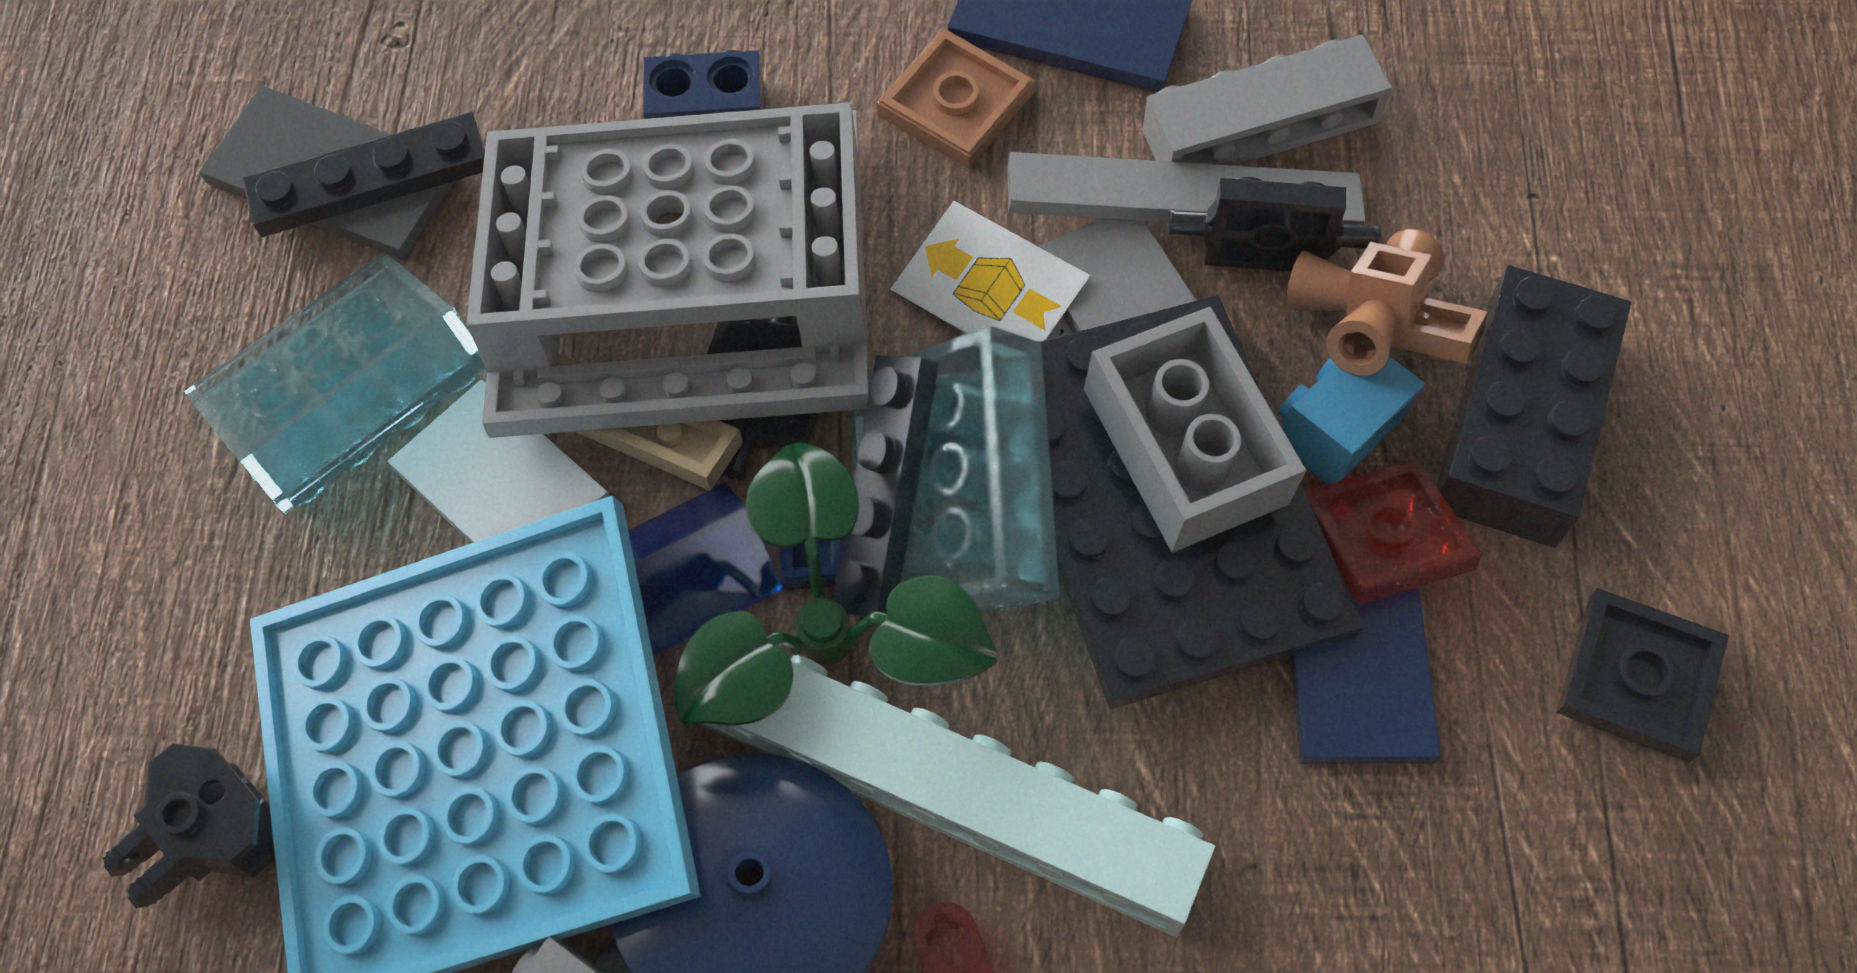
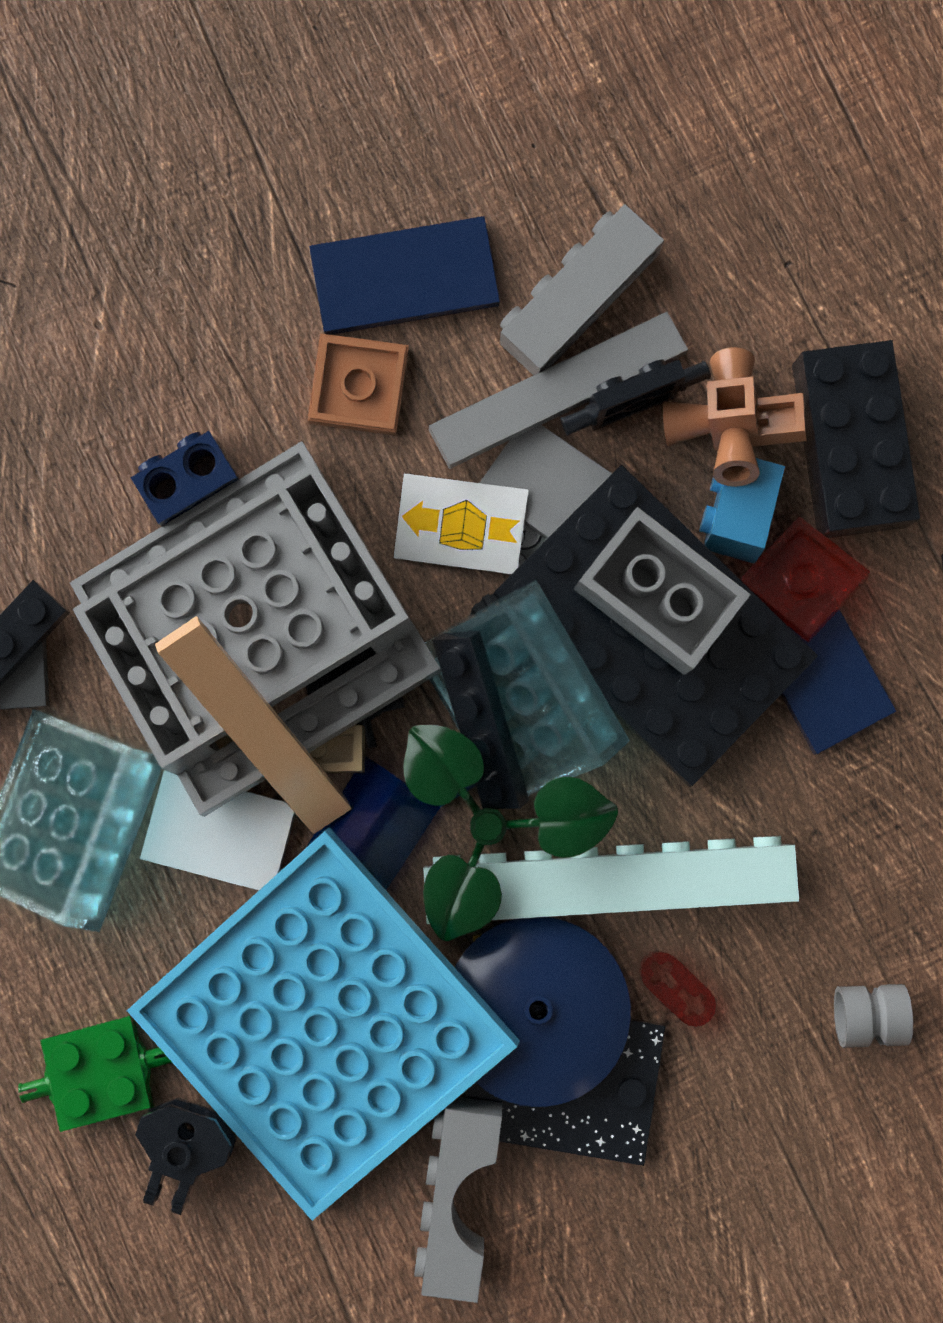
camera: 30 degrees left, 20 degrees up
(163, 682) = (96, 1073): none -> green plate
(602, 323) = (252, 724): none -> light nougat tile

